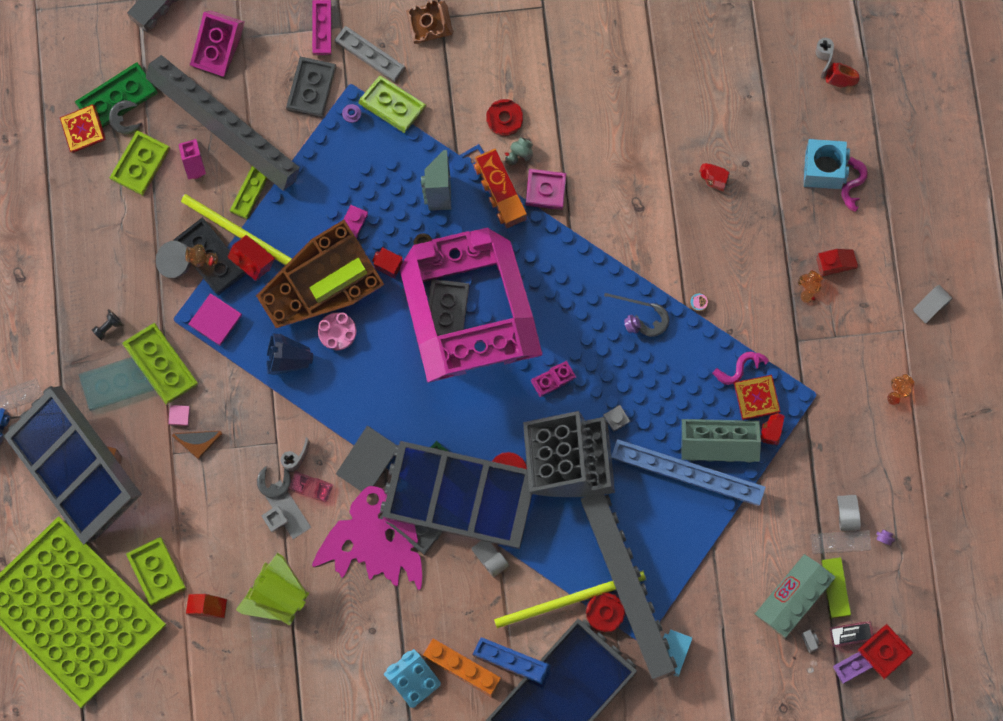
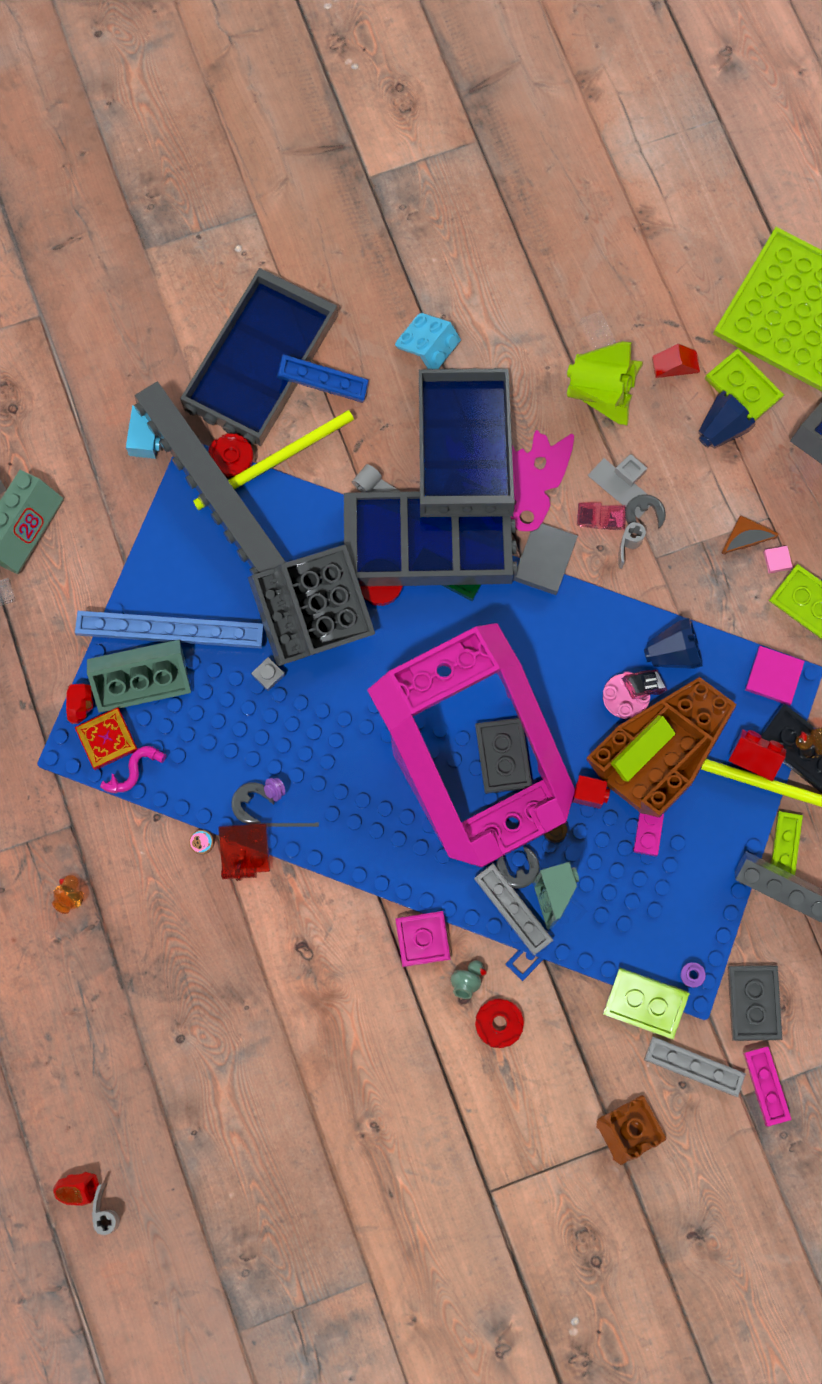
camera: 160 degrees right, 0 degrees up
(184, 537) = (725, 422): none -> dark blue cone
(321, 332) = (644, 684): none -> slope
(406, 569) = (465, 443): none -> clear blue window
(458, 212) = (522, 880): none -> dark grey head
(462, 667) = (375, 361): orange brick -> none
(471, 192) = (513, 909): none -> light grey tile
(500, 188) = (478, 920): brick -> none
(553, 379) = (352, 703): dark pink slope -> none
(665, 284) = (244, 851): none -> clear red plate
(714, 176) = (214, 1007): red rock -> none
(825, 148) = (92, 1068): medium azure brick -> none
(836, 261) = (40, 933): red slope -> none
(860, 166) = (30, 1068): dark pink animal -> none

